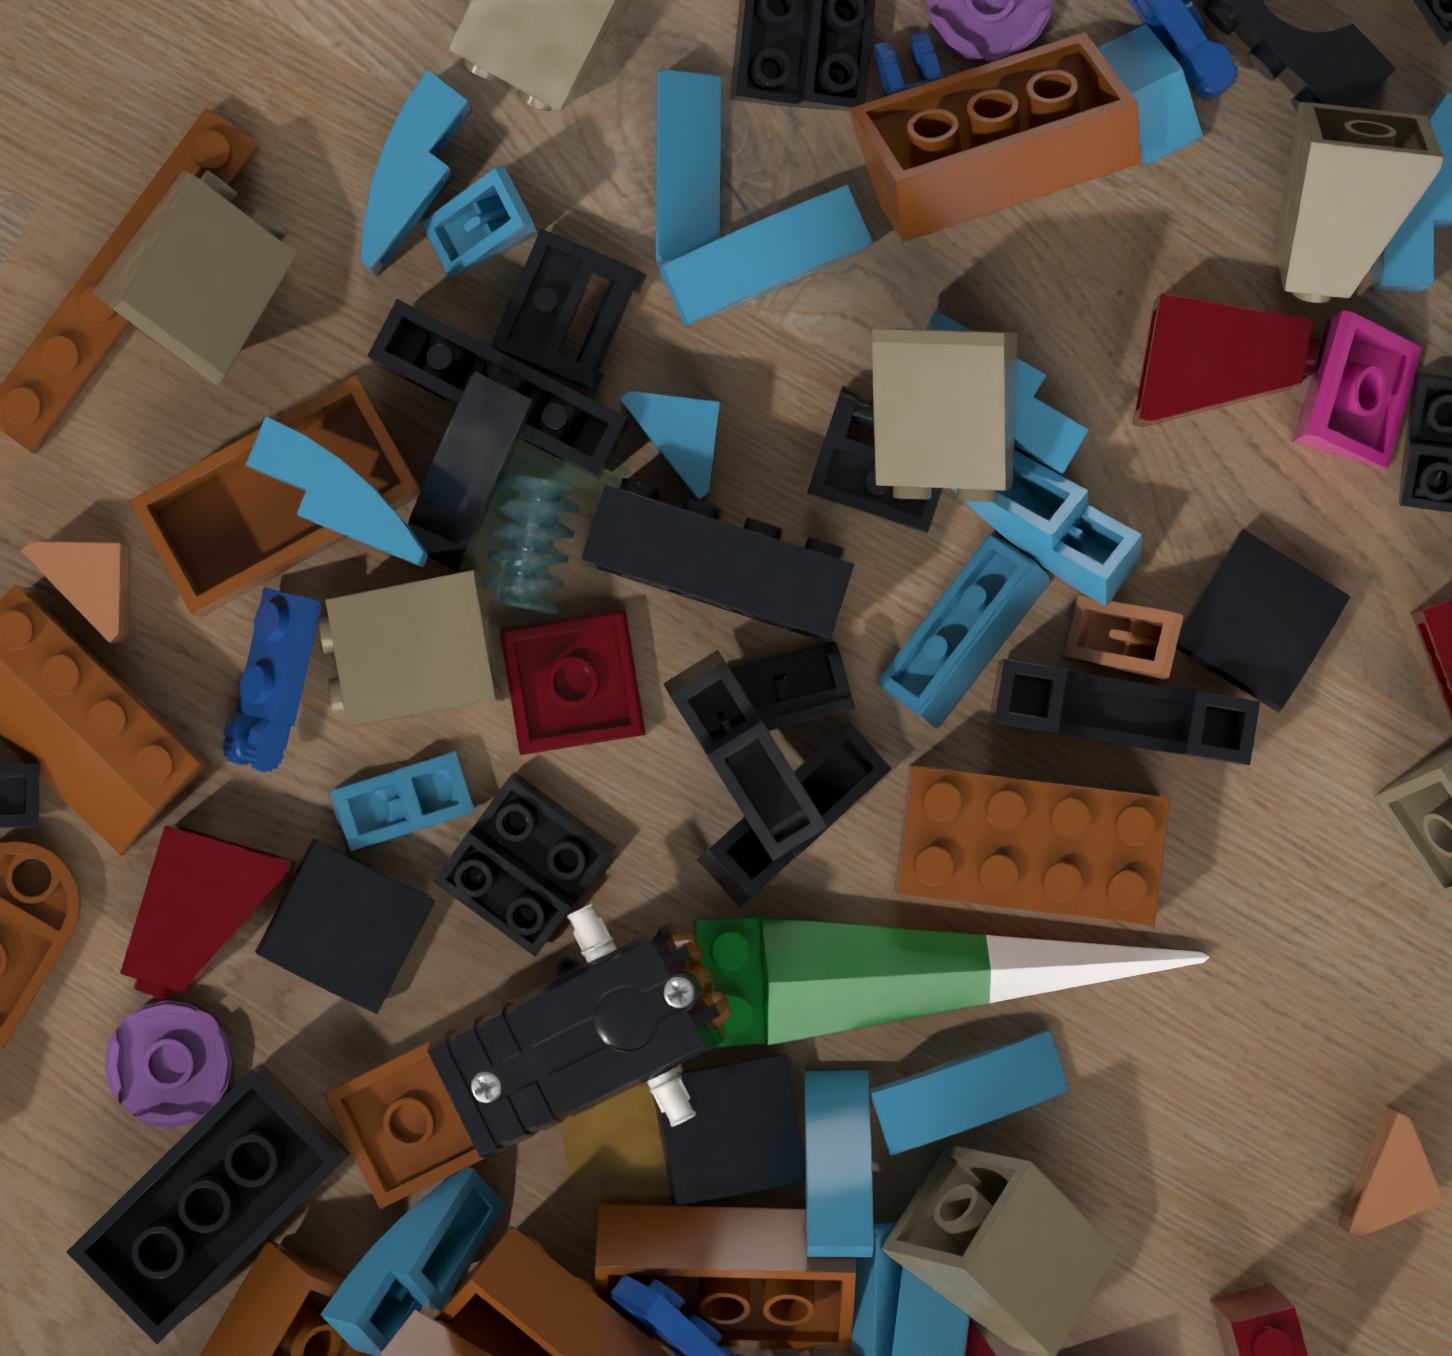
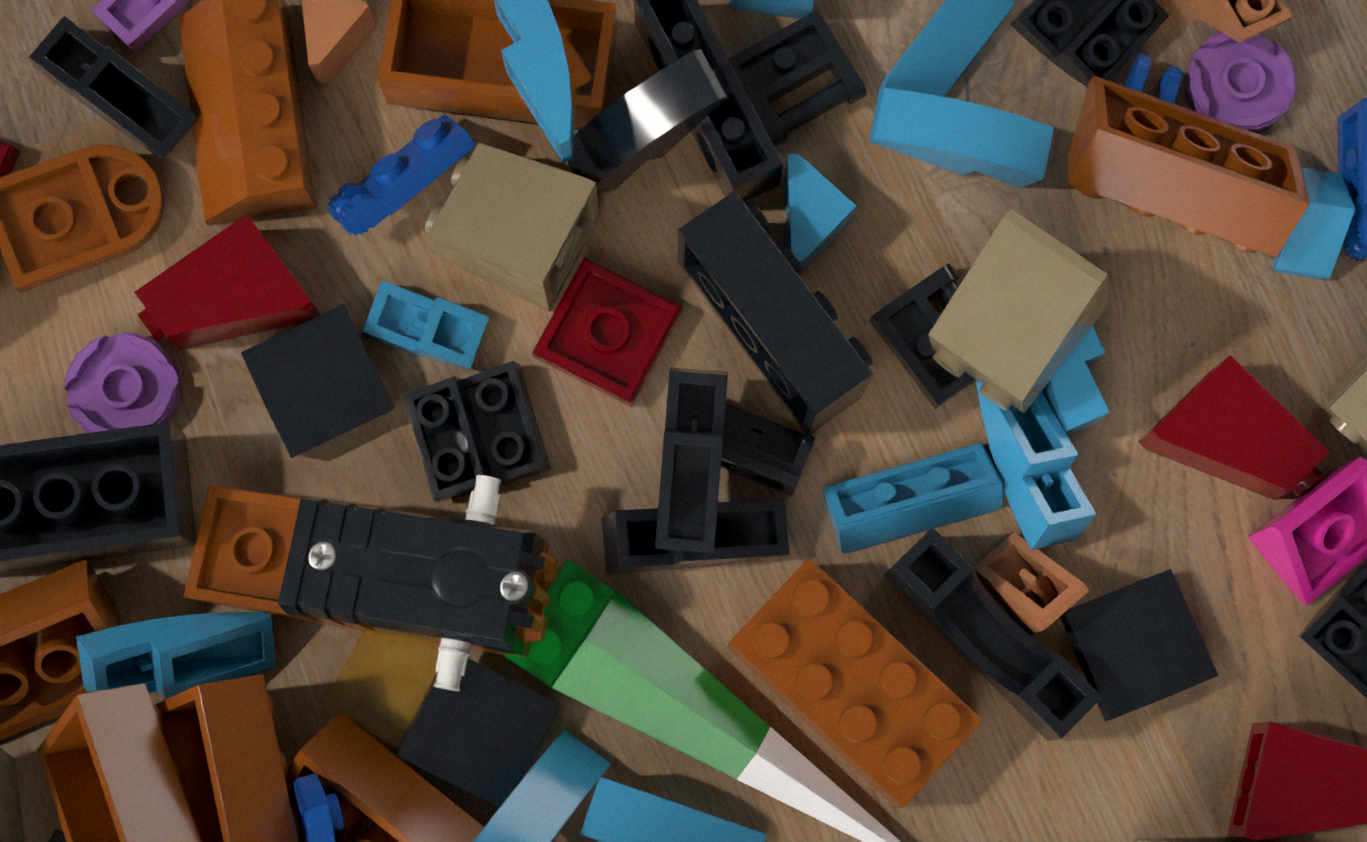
camera: 35 degrees right, 10 degrees down
(530, 543) = (650, 209): clear light blue piece -> none

